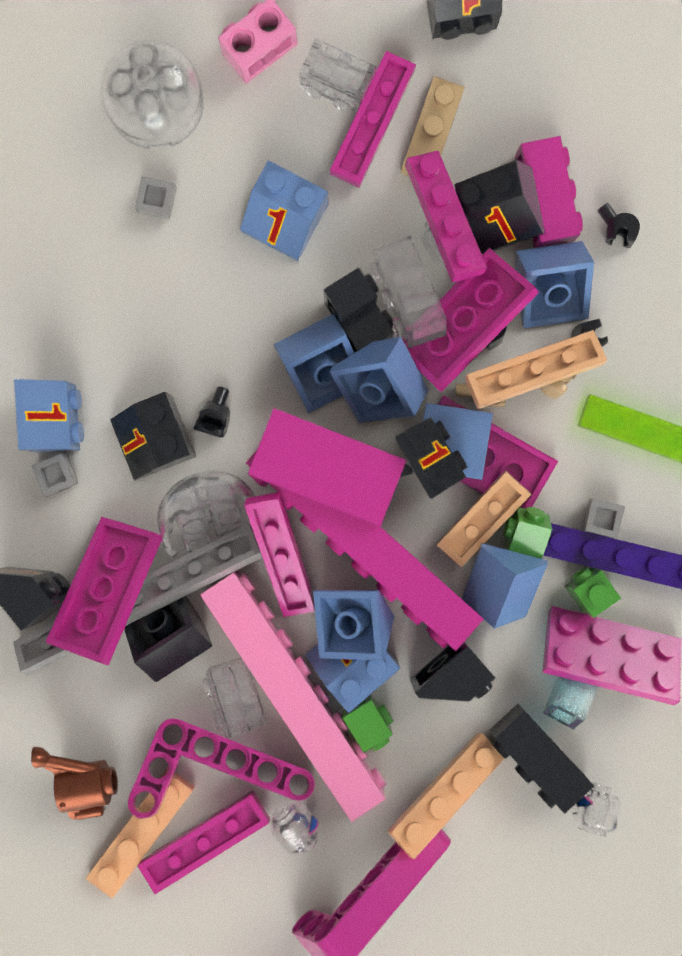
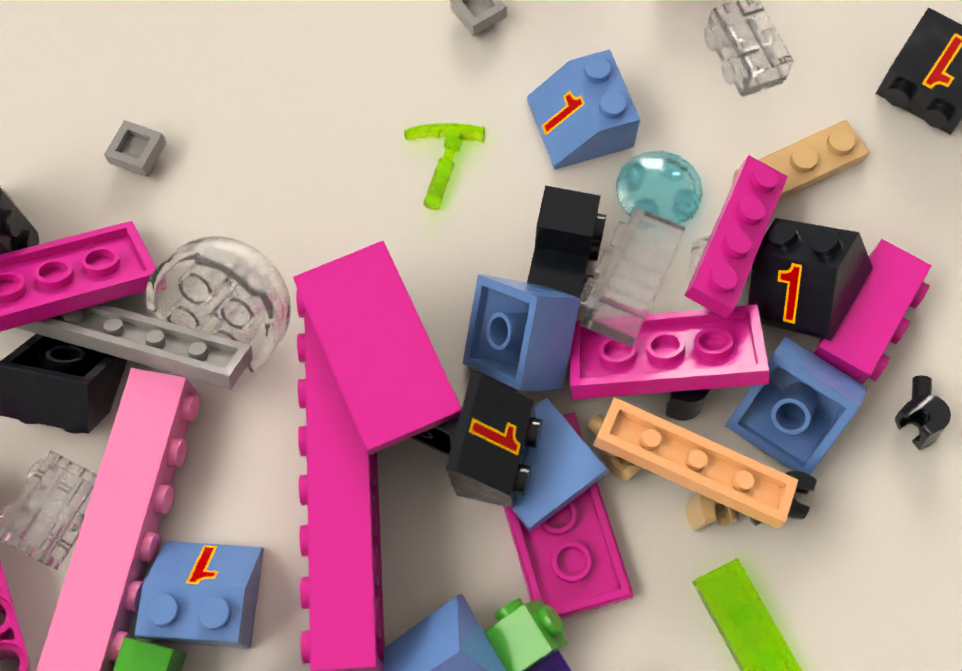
camera: 45 degrees right, 20 degrees down
(48, 415) = (182, 87): medium blue slope -> none
(152, 435) = (259, 194): black slope -> none
(214, 415) = (331, 228): black piece -> none
(237, 318) = (454, 134): none -> clear neon green piece
(280, 553) = (246, 402): dark pink plate -> none
(310, 357) = (470, 248): medium blue slope -> none
(352, 624) = (241, 543): medium blue slope -> none
(368, 219) = (660, 185): none -> clear light blue dish
(372, 119) = (747, 107): dark pink plate -> none
(483, 518) = (492, 573): light nougat plate -> none

